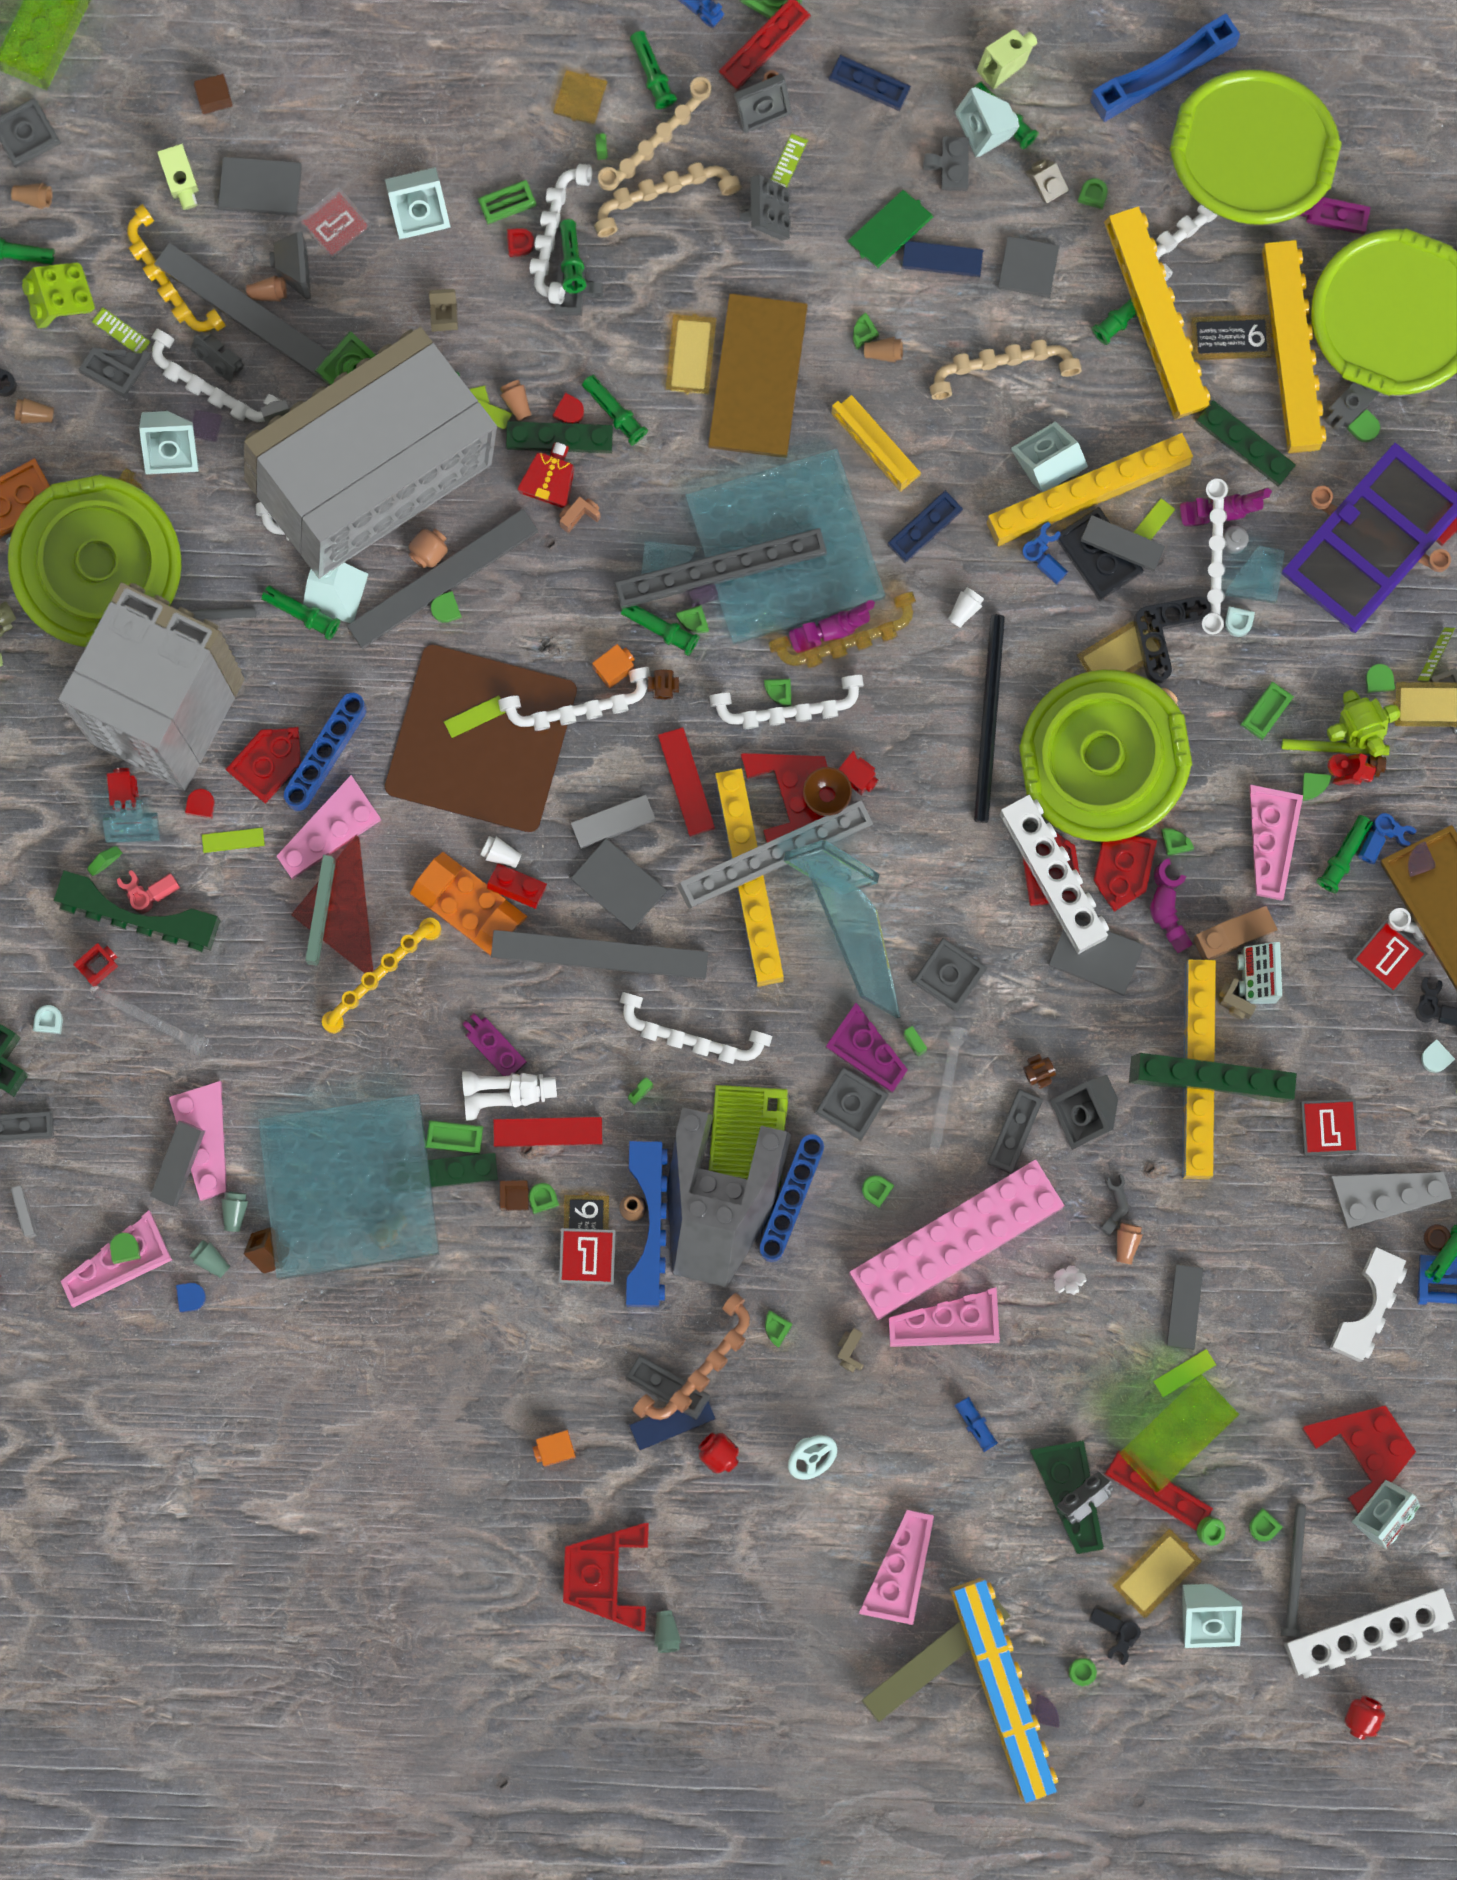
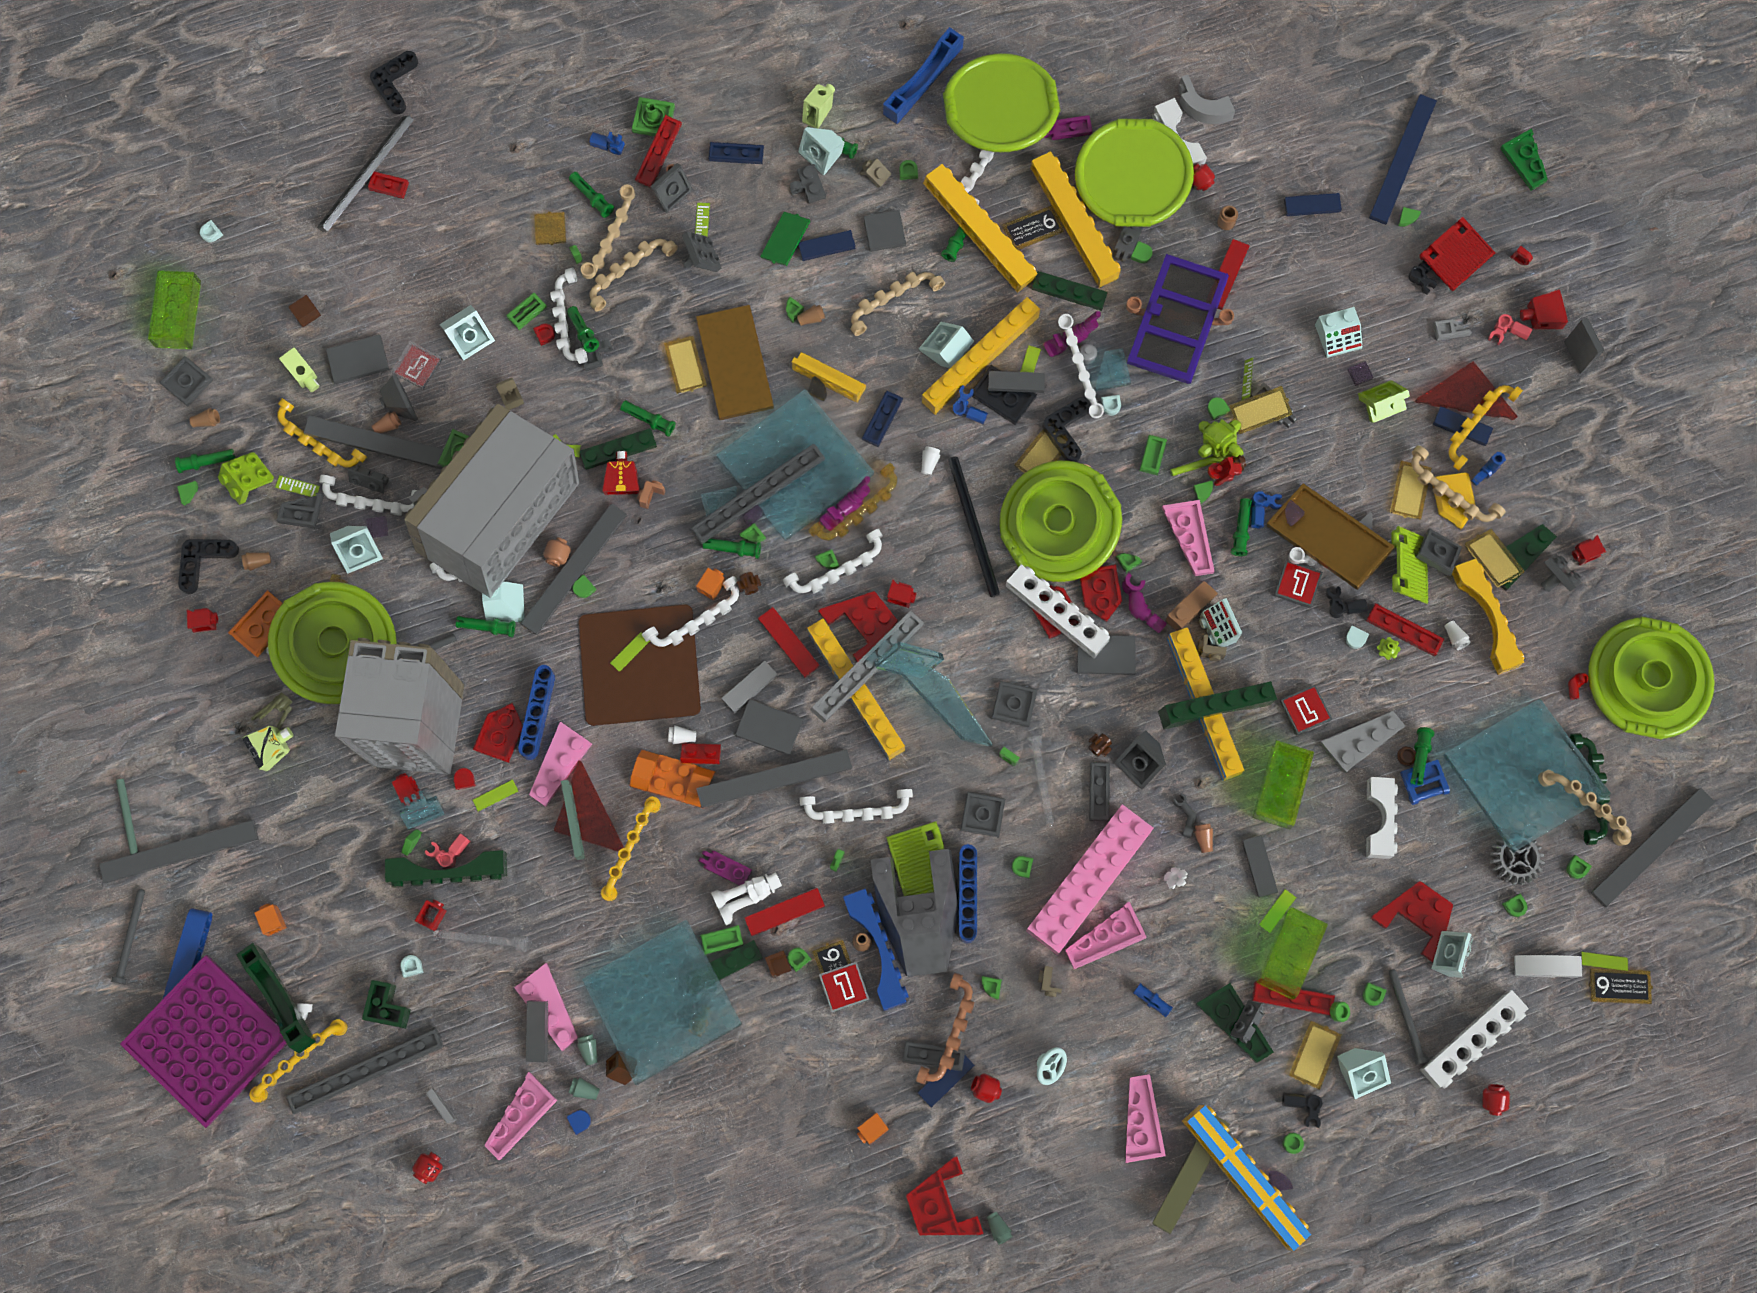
camera: 20 degrees left, 5 degrees down
(124, 1248) = (521, 1104): bright green tile -> none
(516, 399) = (580, 434): nougat cone -> none
(569, 410) = (618, 428): red tile -> none
(830, 778) = (882, 603): reddish brown piece -> none
(853, 454) = (817, 389): none -> clear smoke tile
(866, 1050) = (978, 775): magenta wing -> none
(1257, 1213) = (1283, 785): none -> clear neon green brick

